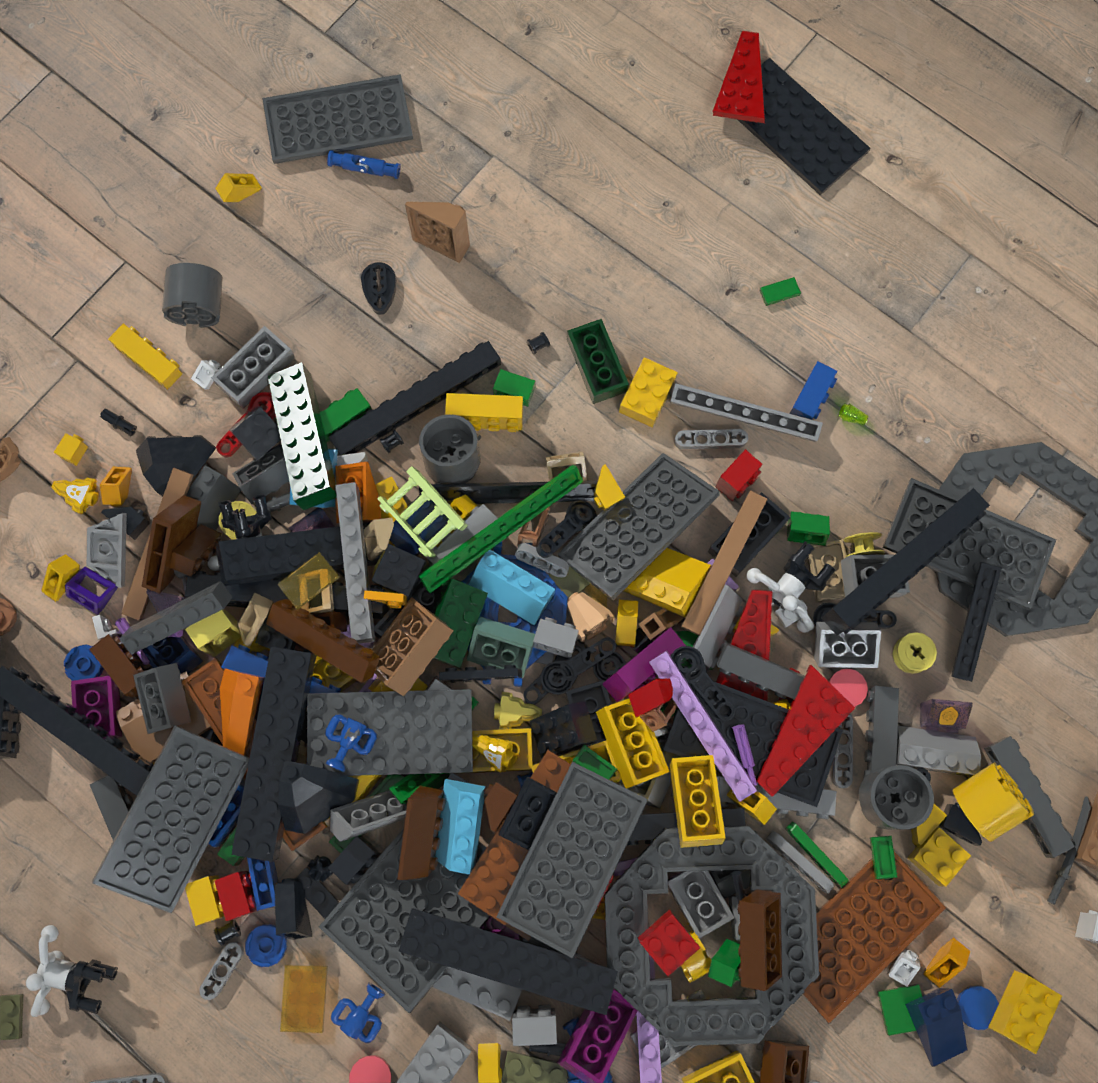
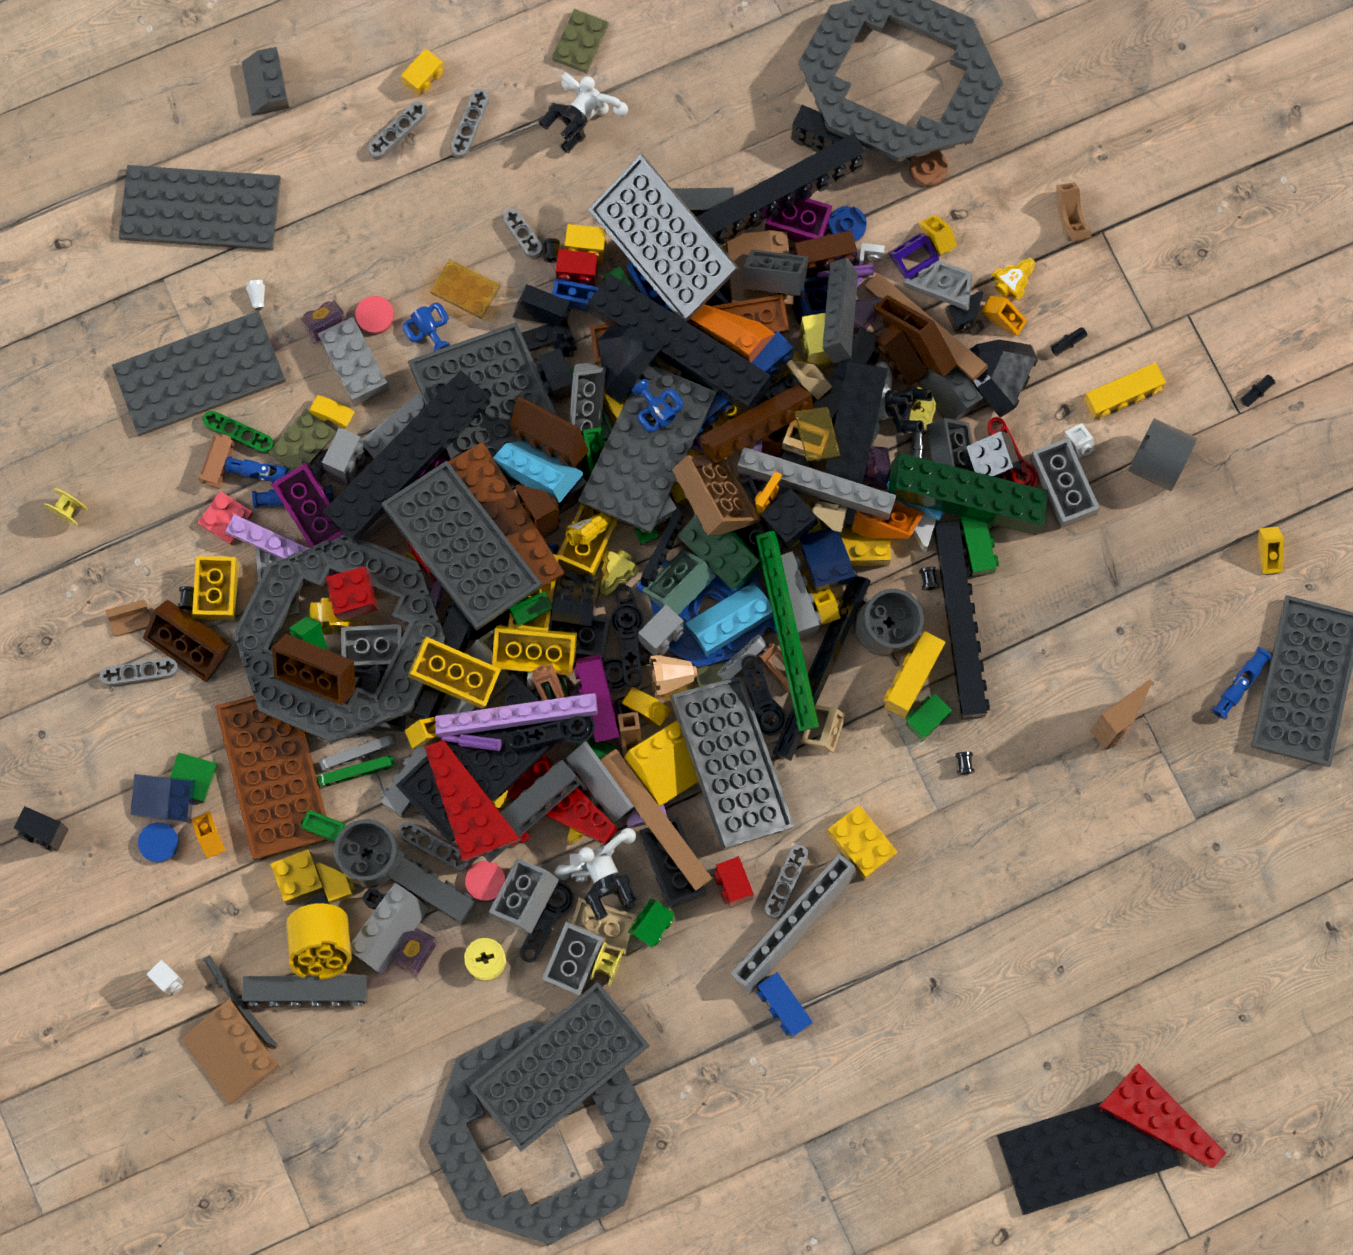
camera: 115 degrees right, 0 degrees up
(71, 449) = (1060, 289): yellow brick -> none
(98, 253) = (1257, 390): none -> black axle
(264, 946) = (522, 273): blue tile -> none
(388, 284) = (1105, 630): black piece -> none
(441, 507) = (829, 579): yellowish green fence -> none
(527, 813) = (517, 524): black tile -> none
(597, 361) = (916, 807): dark green brick -> none
(607, 490) = (779, 748): yellow slope -> none
(651, 696) = (562, 677): red brick -> none
(780, 291) = (908, 1032): green tile -> none
(852, 414) = (743, 1032): clear neon green cone -> none
(905, 967) = (224, 797): white bracket -> none
(906, 563) = (569, 979): black brick -> none
(976, 622) = (483, 1028): black plate -> none
(1025, 1011) = (134, 876): yellow brick -> none

